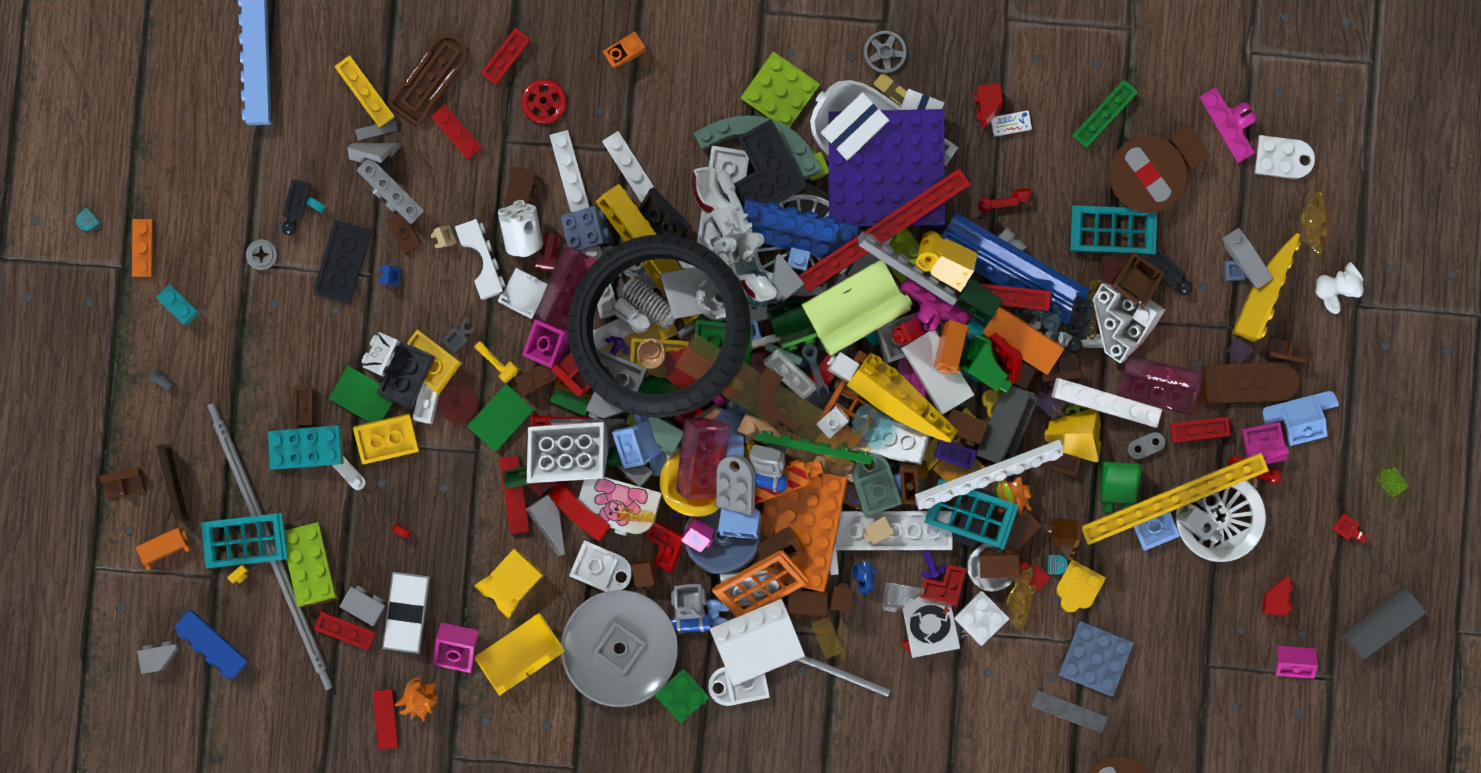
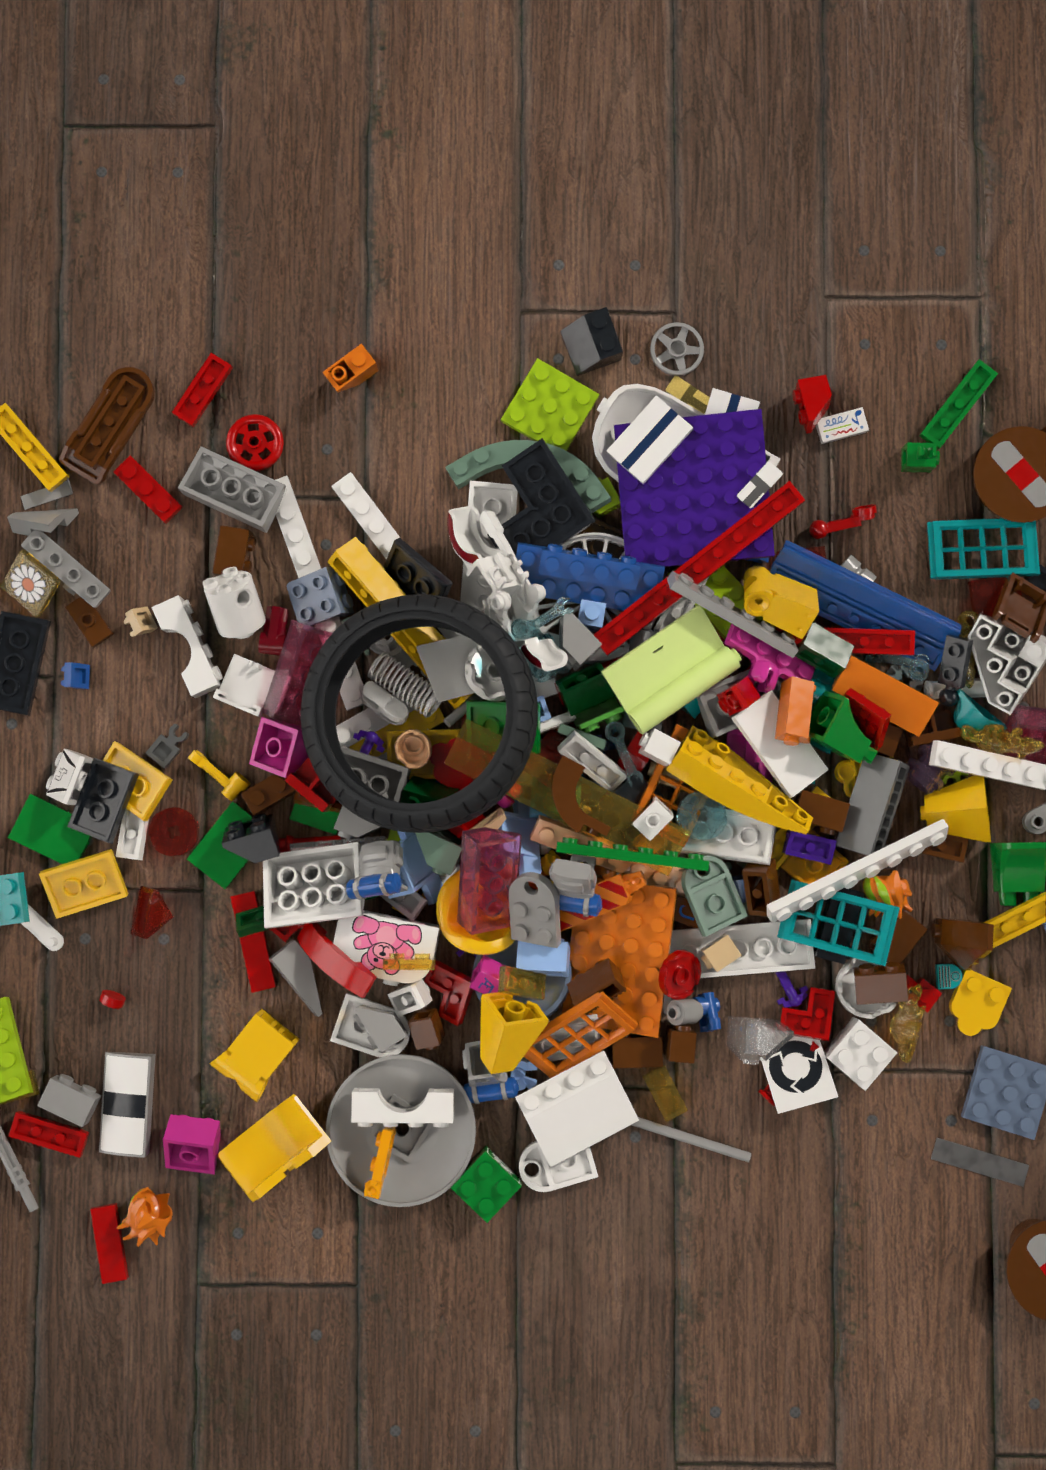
camera: 10 degrees left, 0 degrees up
(360, 200) = (30, 583): none -> tile
(435, 466) = (150, 913): none -> clear red slope
(521, 413) = (253, 839): none -> black slope
(524, 138) = (232, 489): none -> light grey slope
(597, 627) = (371, 1108): none -> white arch
(601, 671) = (380, 1164): none -> light orange hinge
(611, 567) = (382, 1025): none -> light grey slope
(618, 444) = (378, 871): none -> light grey piece
(634, 546) = (410, 997): none -> white slope
(708, 575) = (507, 1030): none -> yellow slope
(722, 540) = (522, 983): none -> clear yellow plate
(747, 267) = (524, 628): none -> clear light blue brick
(817, 42) = (592, 342): none -> black slope
(844, 544) = (679, 974): none -> red tile
(846, 573) = (684, 1011): none -> light grey brick
(937, 168) = (759, 484): none -> white sticker
(1070, 154) = (919, 457): none -> green brick
(1094, 364) = (973, 714): none -> teal hat
(1110, 383) = (997, 740): none -> clear yellow animal

